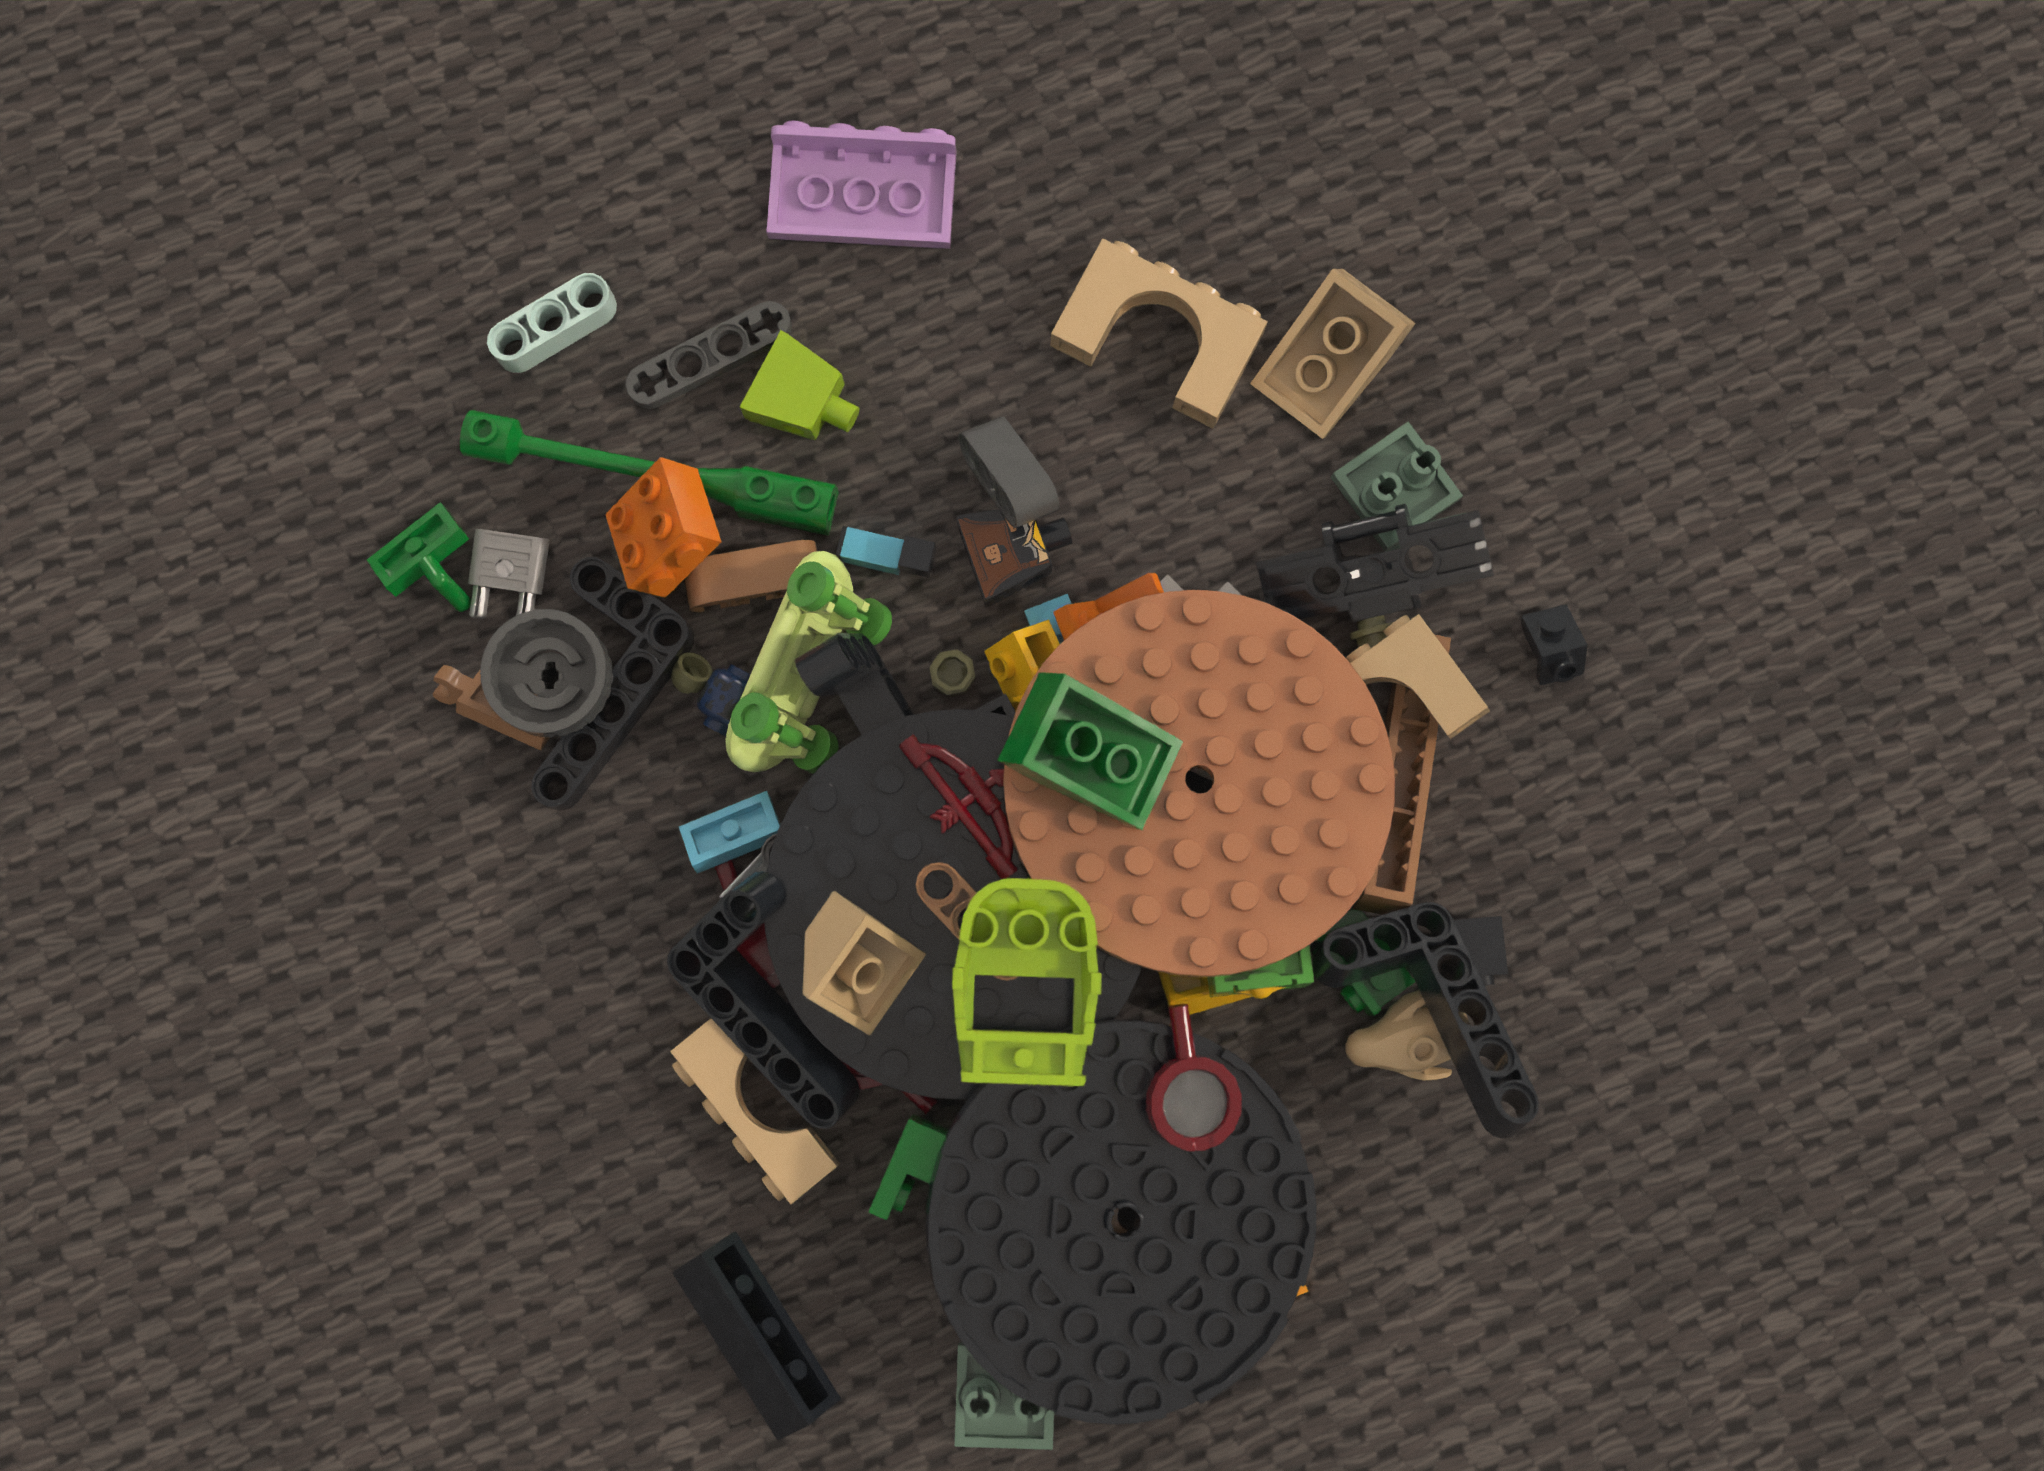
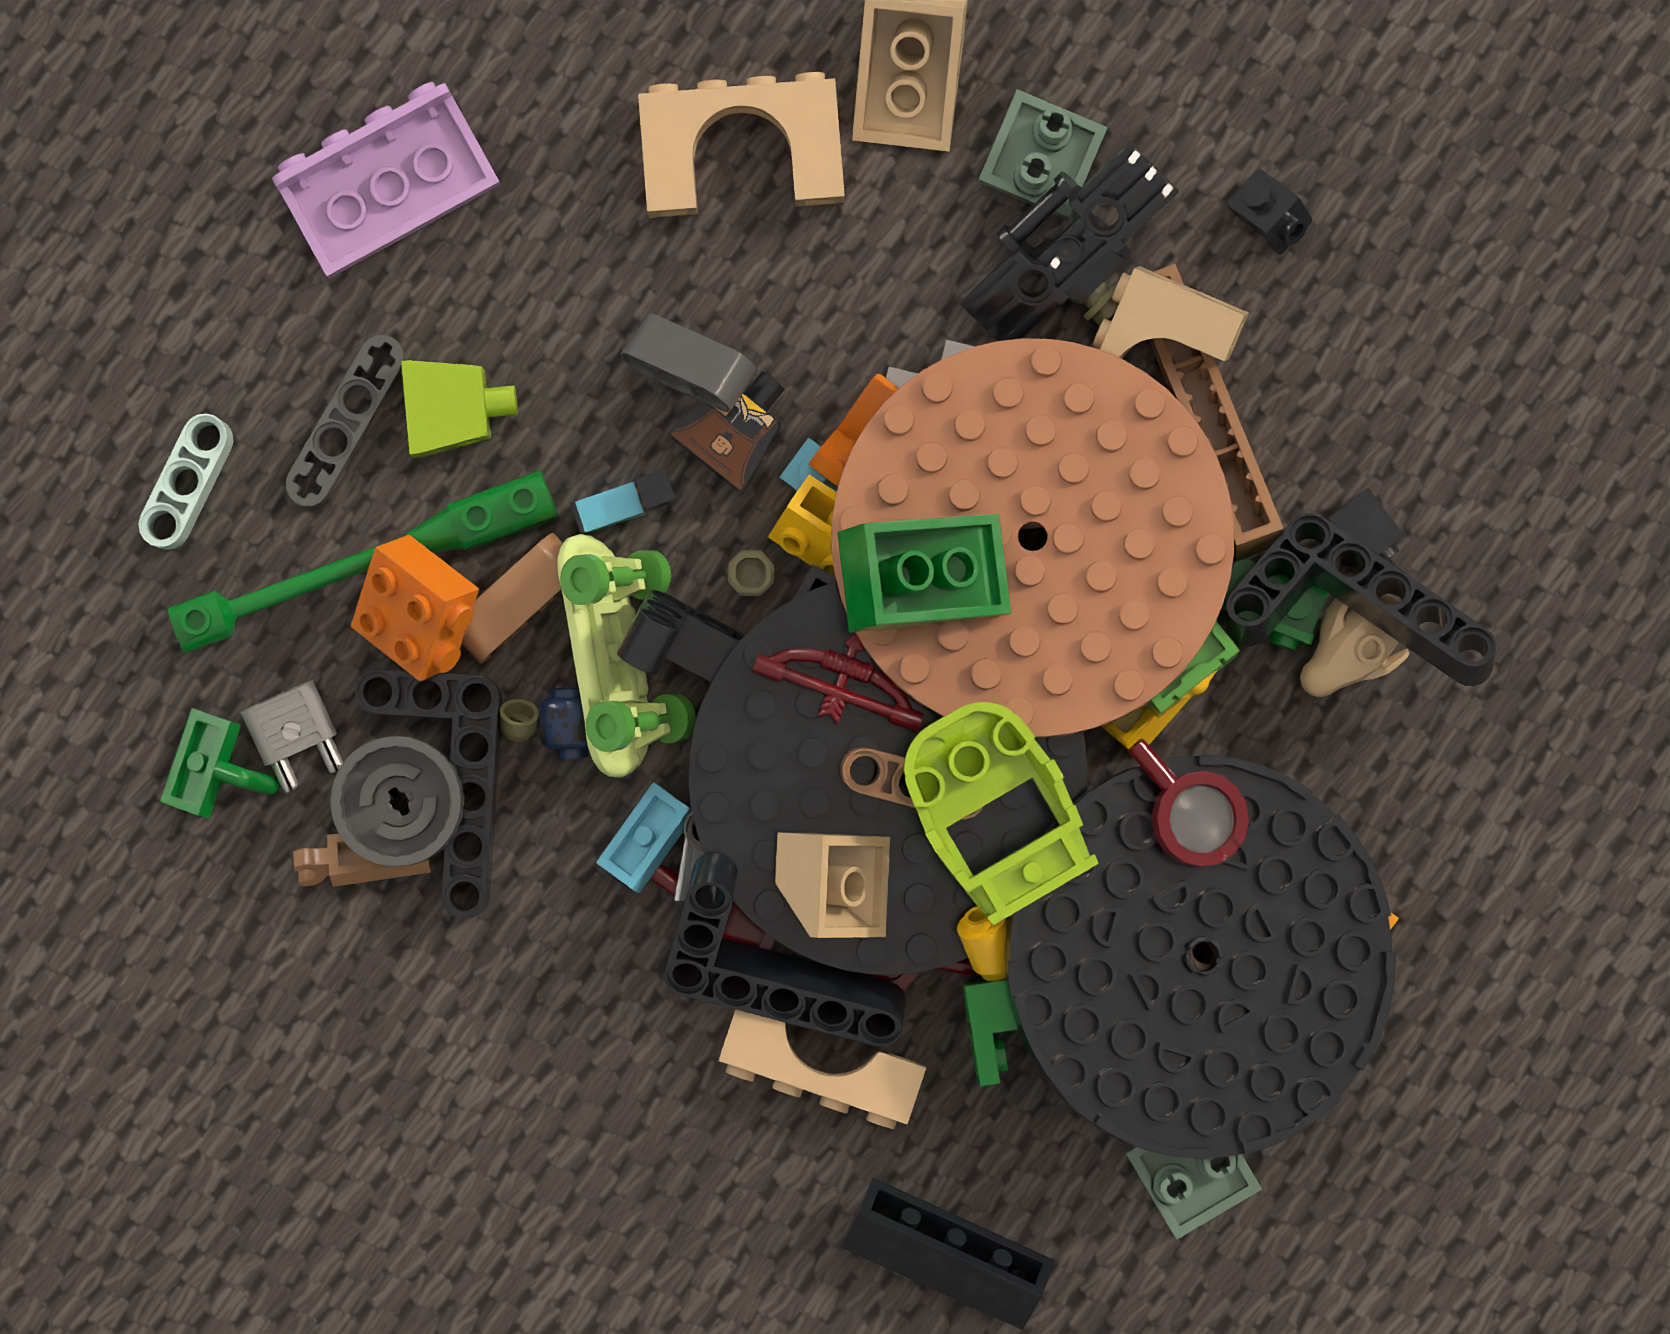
camera: 30 degrees left, 5 degrees up
(947, 1093) = (984, 944): none -> yellow brick

